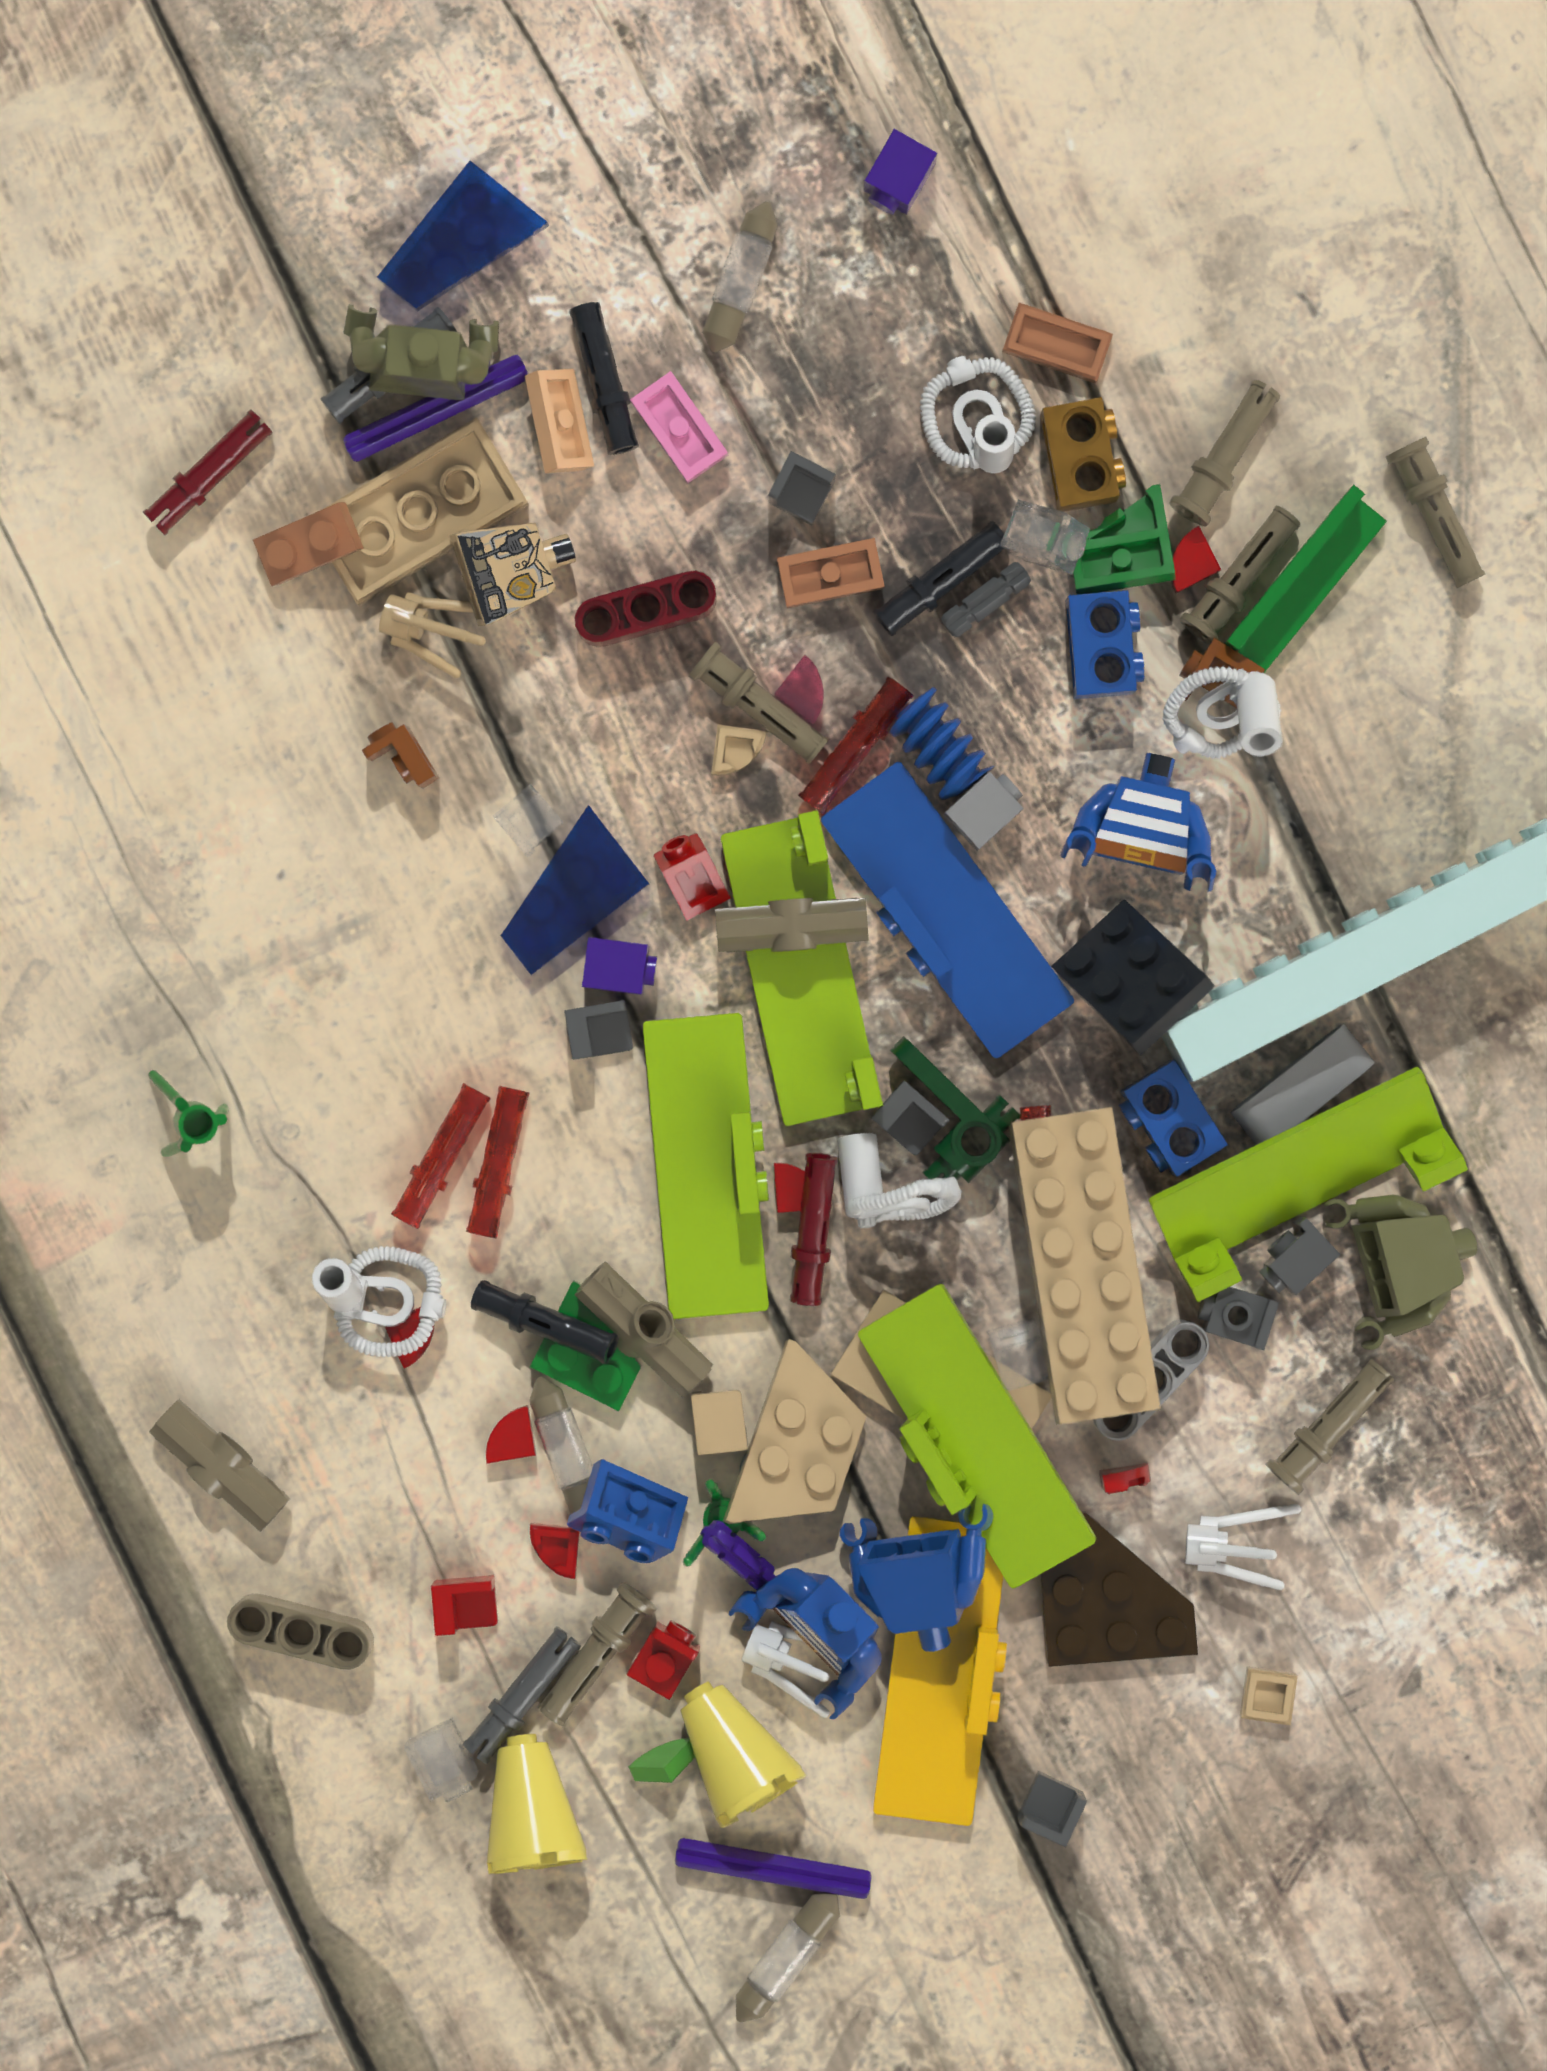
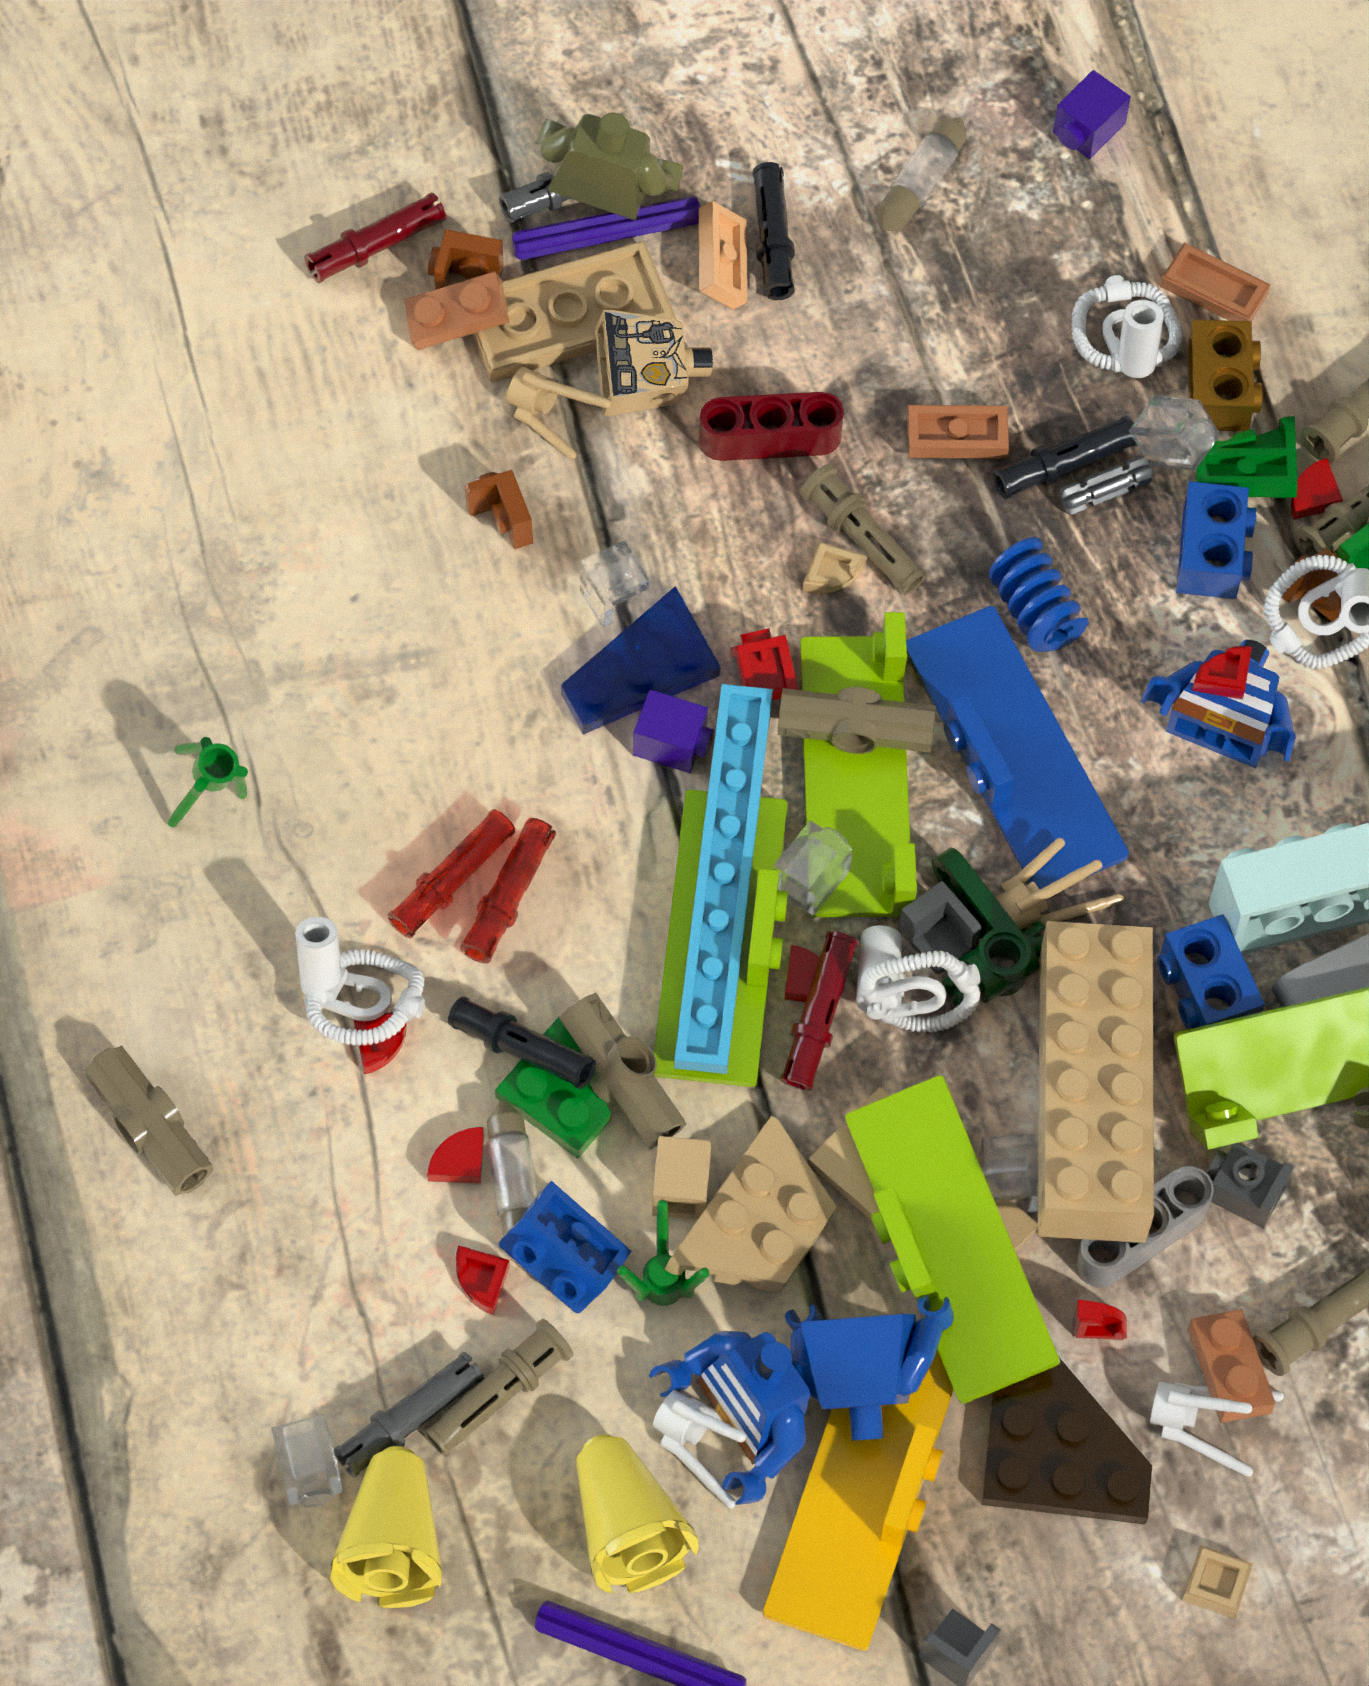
camera: 10 degrees right, 25 degrees down
(276, 1637) = (177, 1278): dark tan beam -> none
(310, 478) = (464, 255): none -> dark orange bracket
(459, 237) = (670, 89): clear blue wing -> none
(463, 1604) = (370, 1308): red panel -> none
(598, 1030) = (640, 786): dark grey panel -> none
(663, 1762) = (545, 1515): bright green tile -> none
(664, 1658) = (571, 1408): red bracket -> none
(679, 427) = (836, 283): bright pink plate -> none
(698, 1114) = (723, 880): none -> medium azure plate
(737, 1554) = (671, 1306): dark purple axle -> none
(780, 1088) = (813, 866): none -> clear brick
(801, 488) = (944, 351): dark grey panel -> none
(803, 690) = (910, 529): clear pink tile -> none
(856, 744) = (950, 581): clear red pin -> none
(985, 809) = (1069, 662): light grey brick -> none
(987, 1078) = (1027, 902): none -> tan plant
(1133, 976) = (1194, 824): black plate -> none
(1137, 806) = (1225, 673): none -> red tile
(1250, 1495) = (1231, 1363): none -> nougat plate
(1298, 1258) = (1321, 1138): dark grey brick -> none

